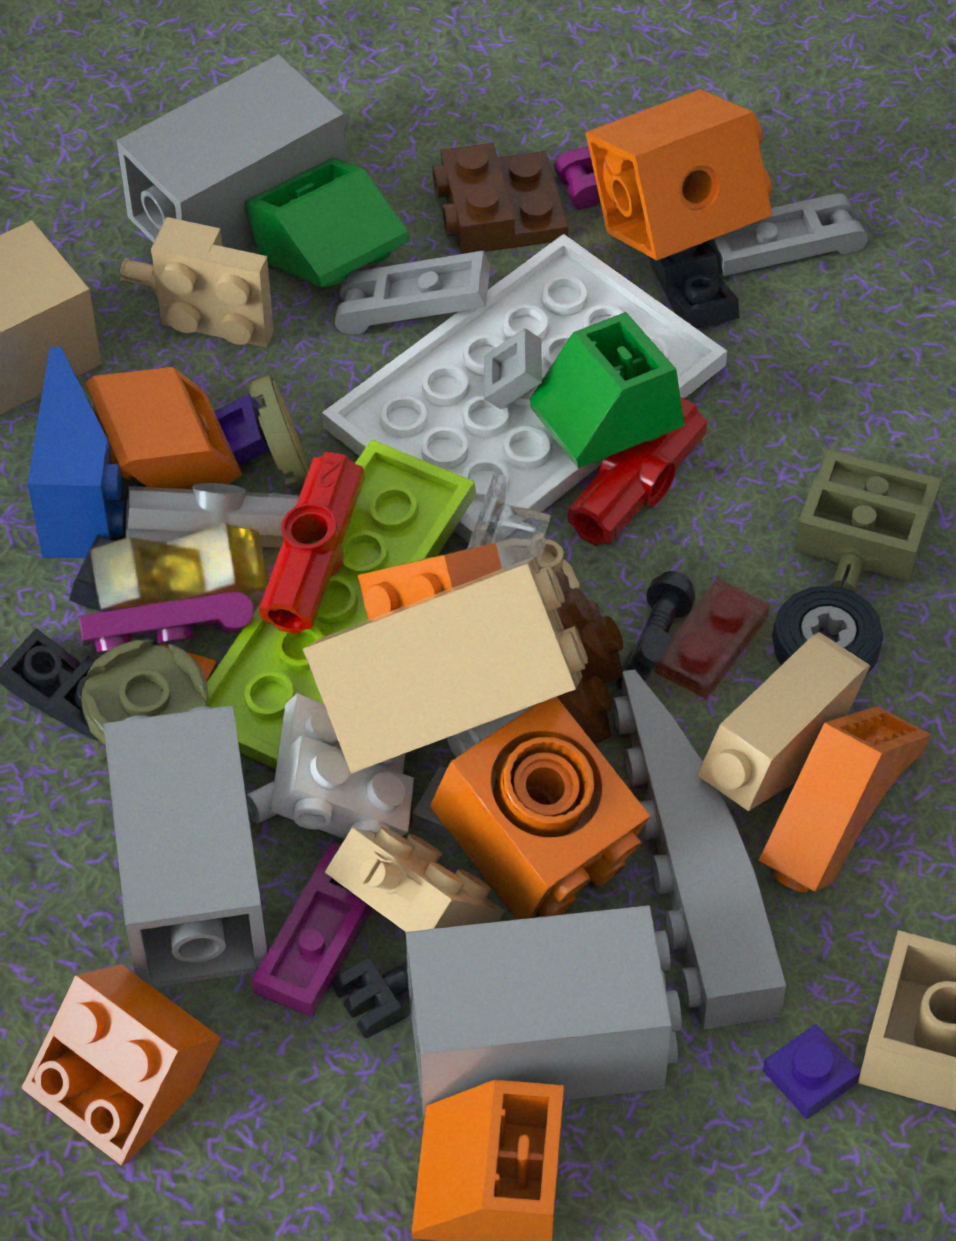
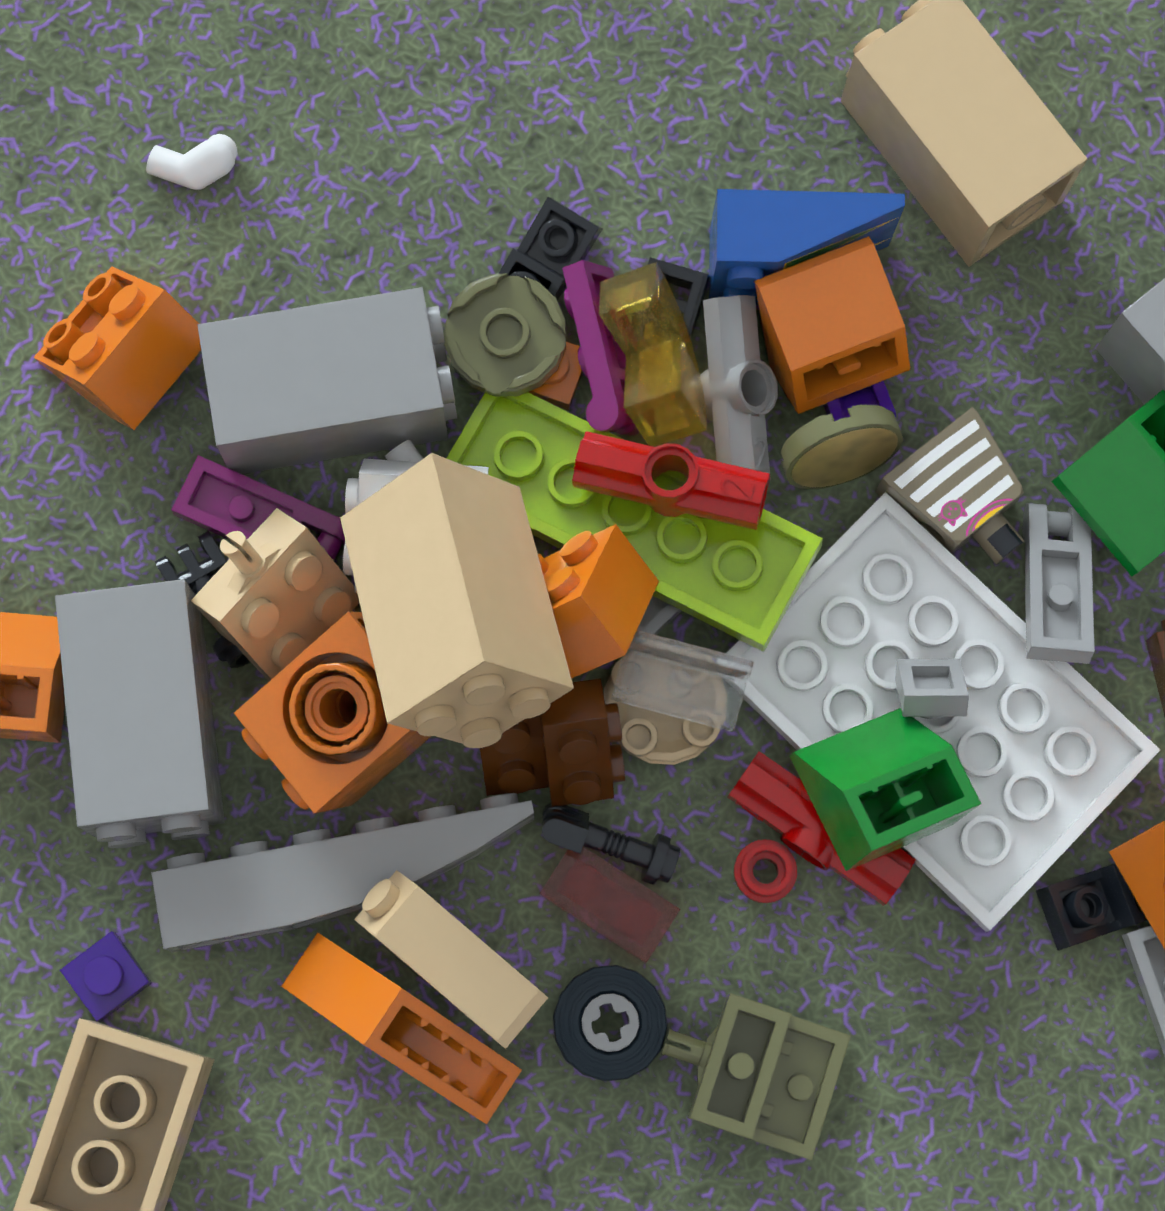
camera: 85 degrees right, 25 degrees up
(206, 284) = (1048, 352): tan plate -> none
(318, 359) = (959, 488): none -> dark tan torso
(678, 503) = (783, 862): none -> red plate

